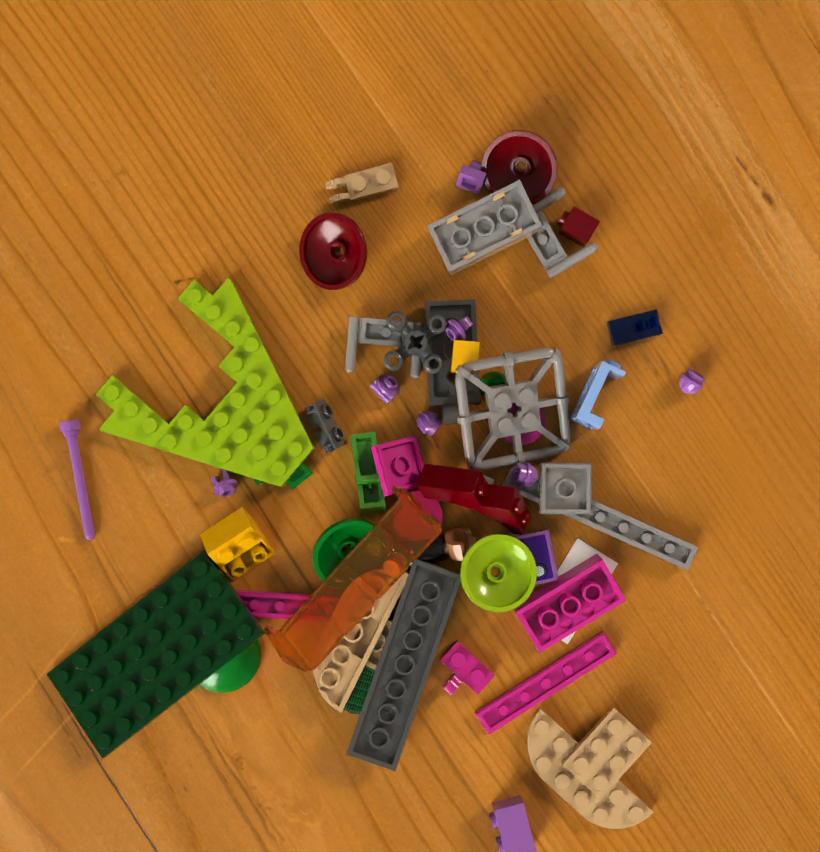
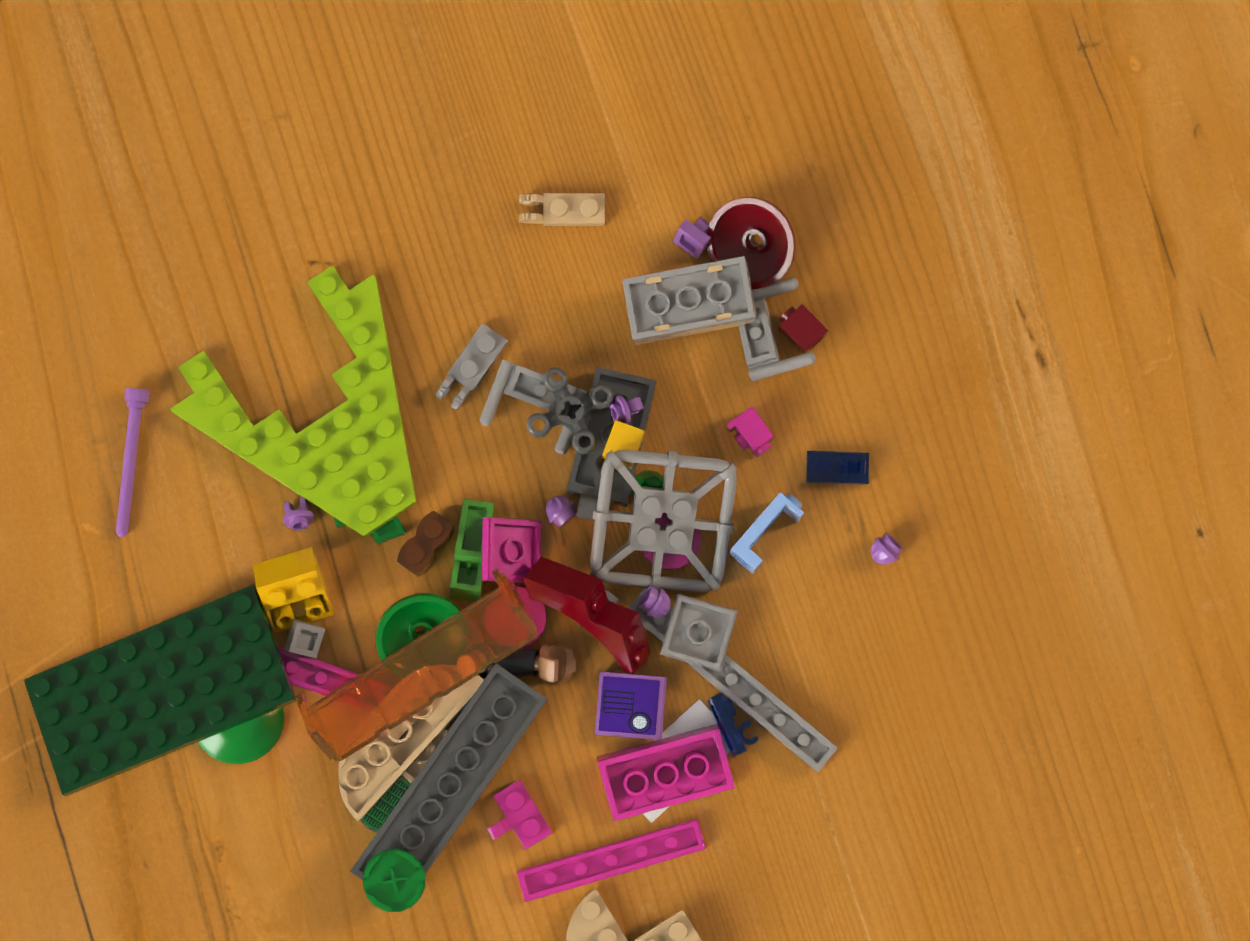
camera: 25 degrees right, 5 degrees down
(257, 579) = (304, 638): none -> light grey plate
(321, 251) = (492, 274): dark red dish -> none
(322, 415) = (436, 466): dark grey hinge -> none
(327, 326) = (473, 364): none -> light grey hinge
(328, 485) = (431, 536): none -> reddish brown brick
(383, 752) = (394, 880): none -> green tile
(385, 387) = (521, 455): medium lavender plate -> none
(515, 573) = (612, 703): lime dish -> none
(561, 319) = (751, 432): none -> dark pink brick
(601, 545) = (723, 712): none -> clear blue plate

